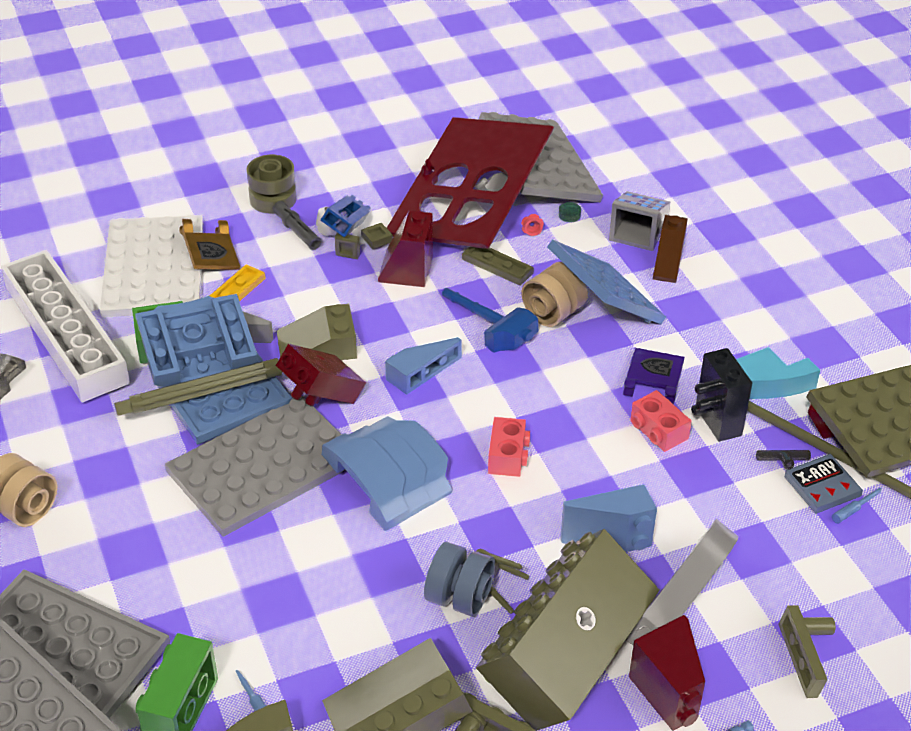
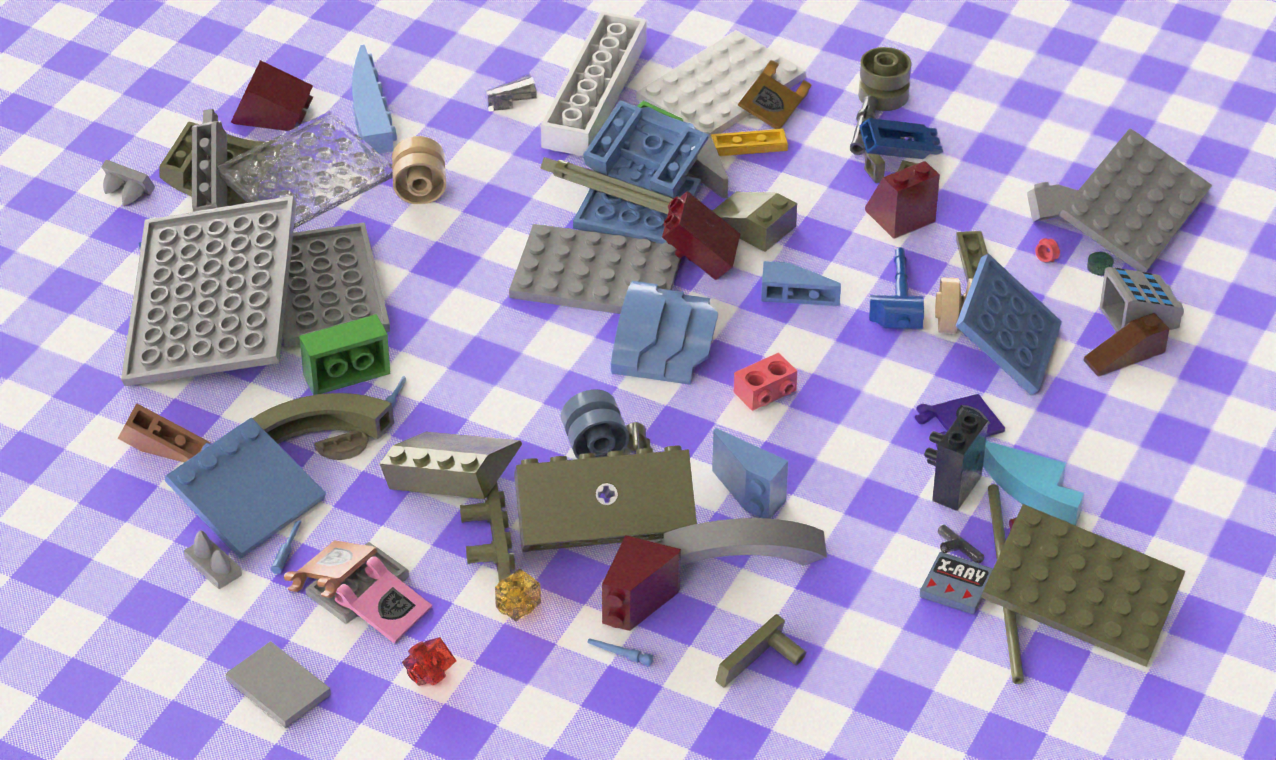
camera: 50 degrees right, 0 degrees up
(479, 148) = (1081, 155): dark red door -> none
(660, 420) = (901, 450): coral brick -> none
(853, 507) = (954, 614): medium blue piece -> none

